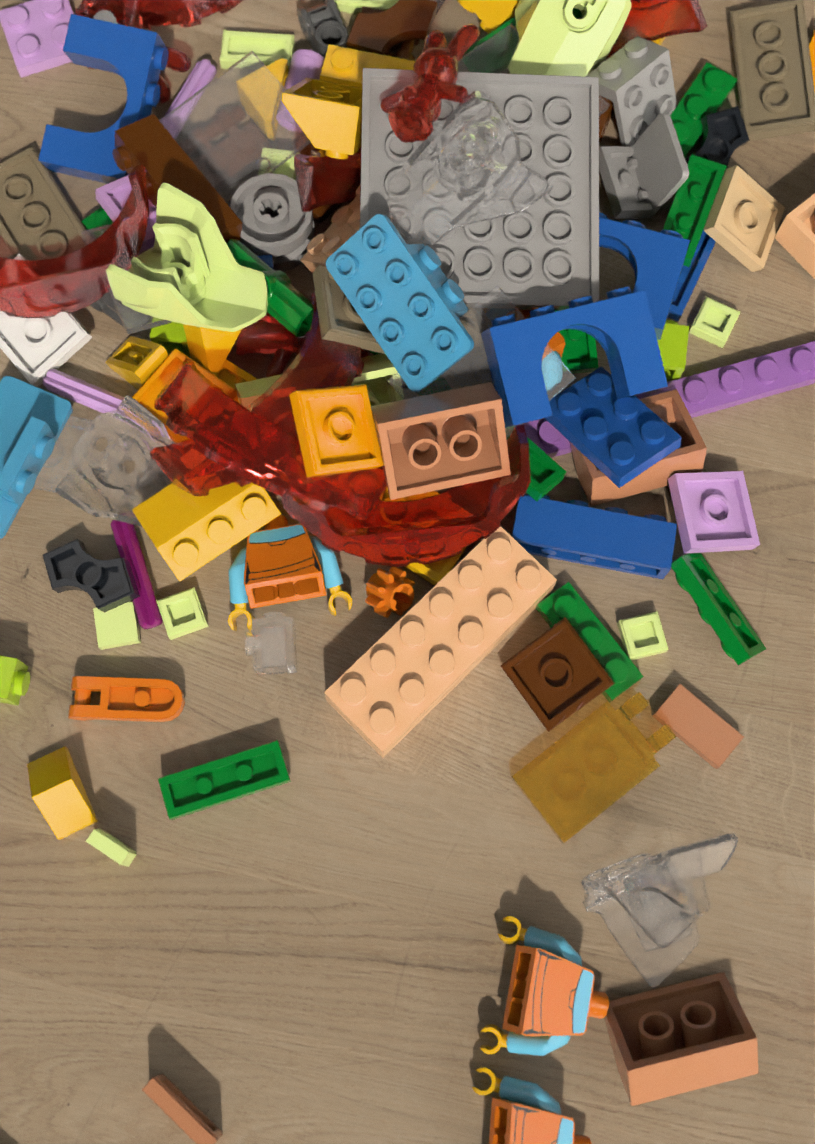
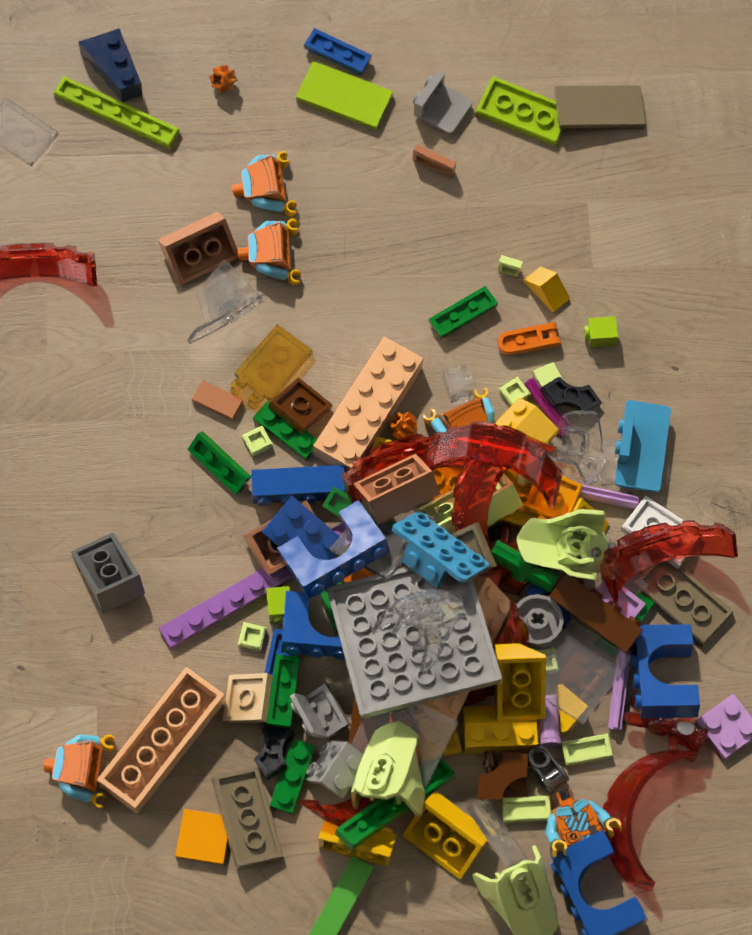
camera: 165 degrees right, 5 degrees down
(336, 430) = (454, 467): light orange tile -> none
(435, 78) = (457, 675): clear red animal -> none
(713, 512) = (232, 513): lavender plate -> none

